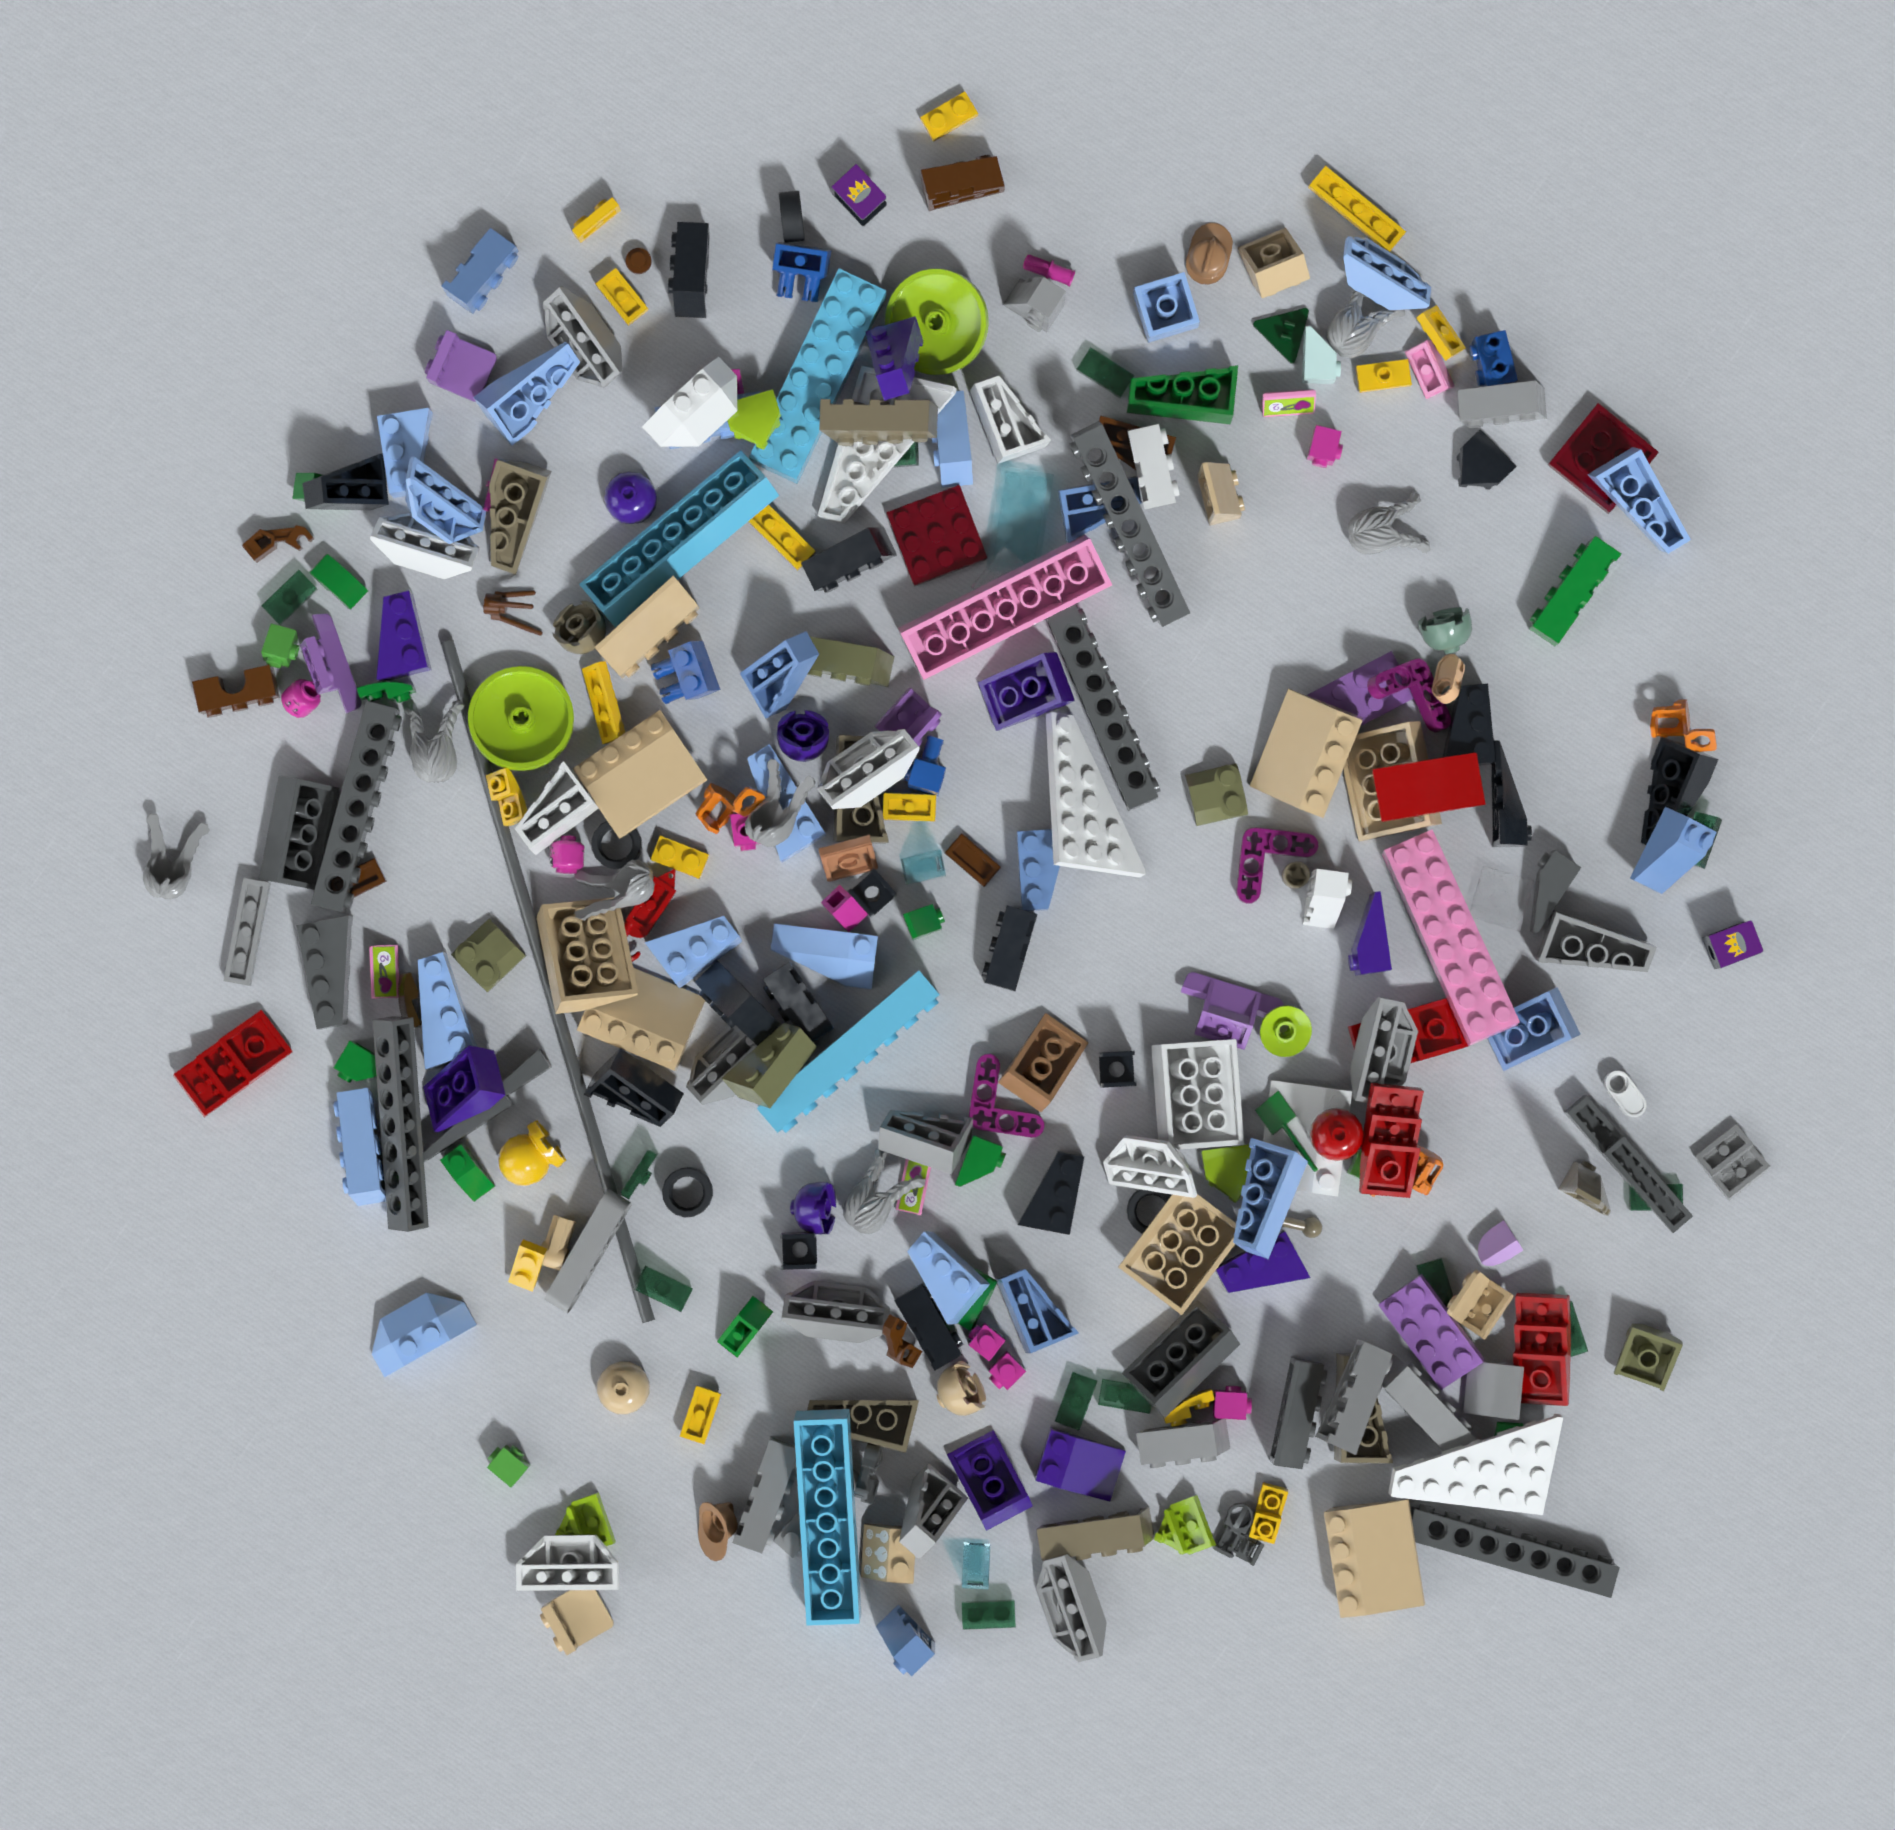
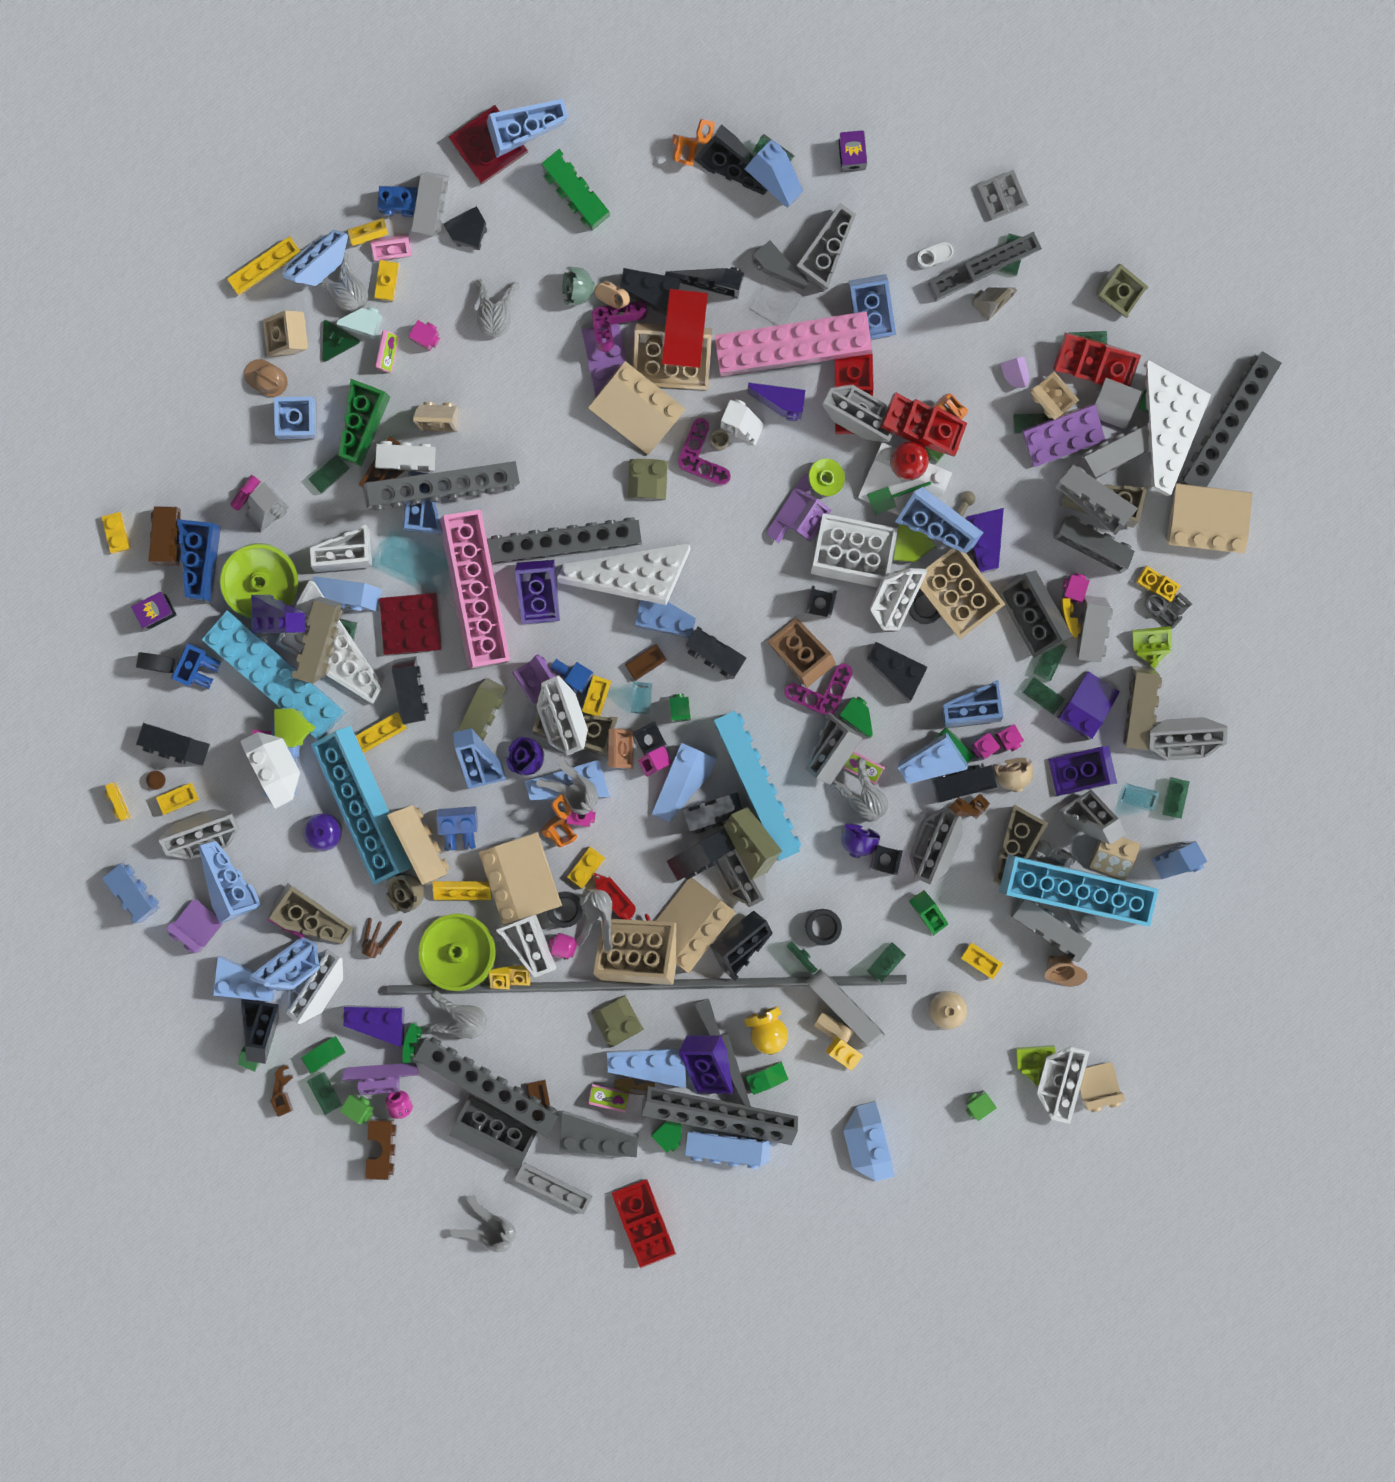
camera: 75 degrees left, 0 degrees up
(694, 948) = (653, 875): light blue wedge -> none
(946, 233) = (199, 557): none -> blue wedge

